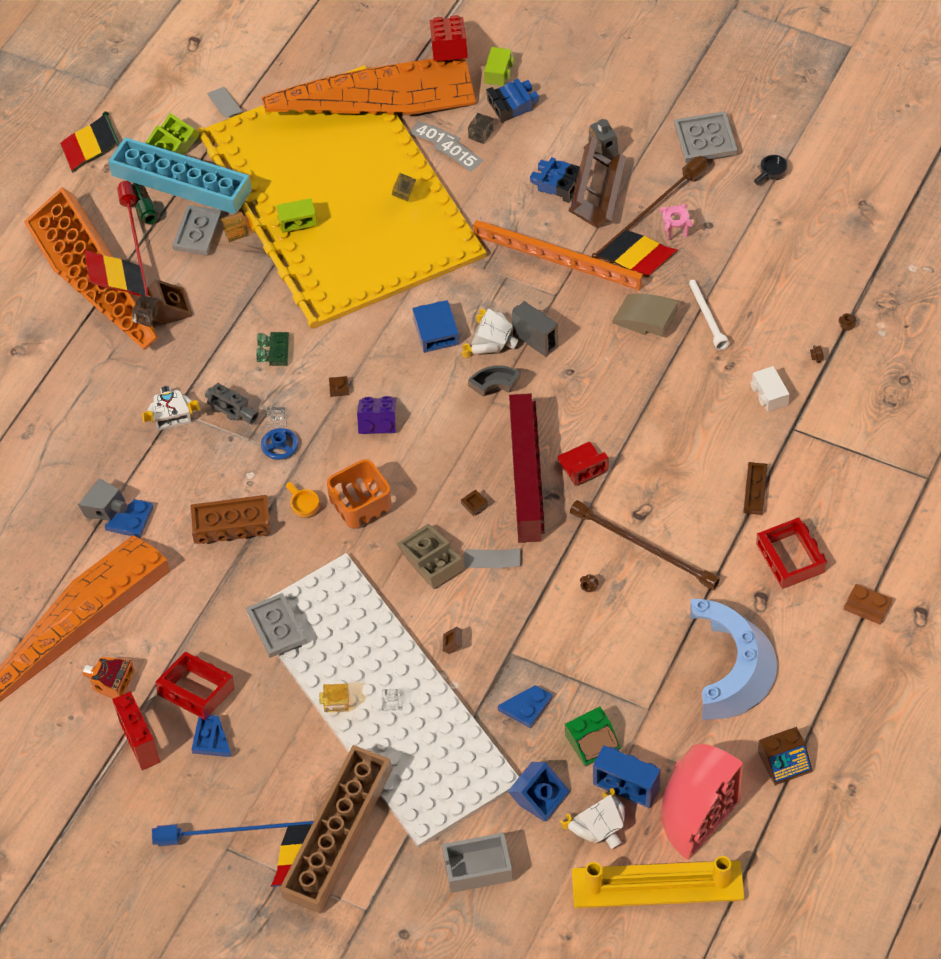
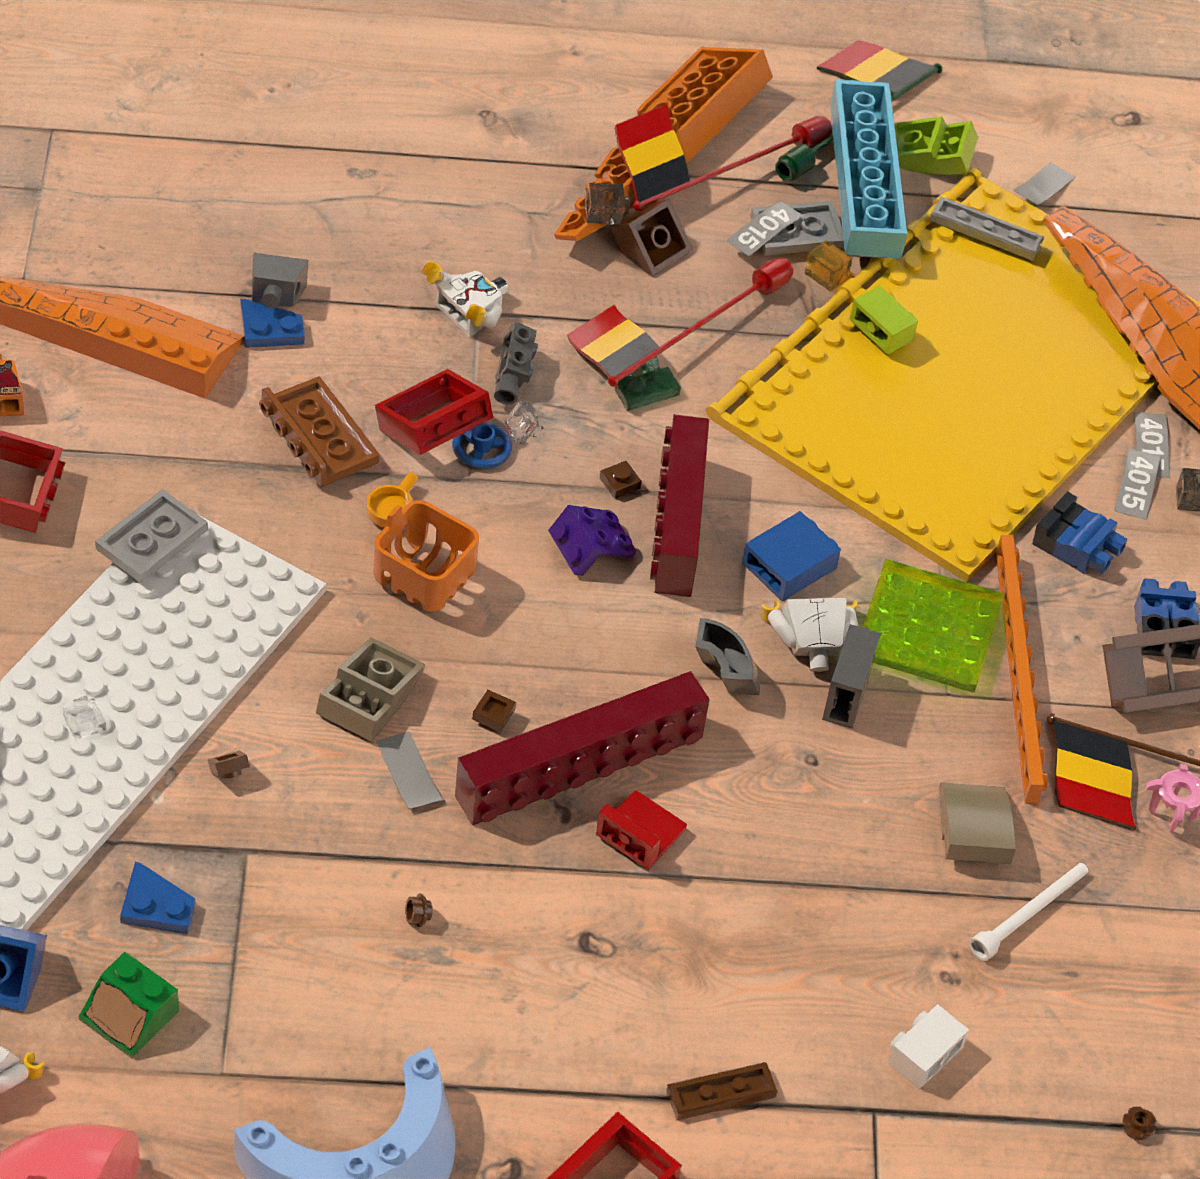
camera: 55 degrees right, 5 degrees down
(191, 245) = (763, 228): none -> light grey sticker
(241, 437) = (469, 409): none -> red window
(244, 347) = (623, 346): none -> flag
(249, 141) = (987, 228): none -> light grey tile
(335, 697) = (54, 646): clear yellow brick -> none
(381, 360) = (680, 505): none -> dark red brick
(403, 187) = (1011, 423): clear smoke brick -> none
(485, 192) = (1078, 536): none -> blue hips
(509, 280) = (932, 624): none -> clear neon green plate
(627, 776) = (64, 1067): blue brick -> none
(707, 578) = (504, 1072): reddish brown hose -> none
(817, 353) = (1043, 1096): reddish brown plate -> none

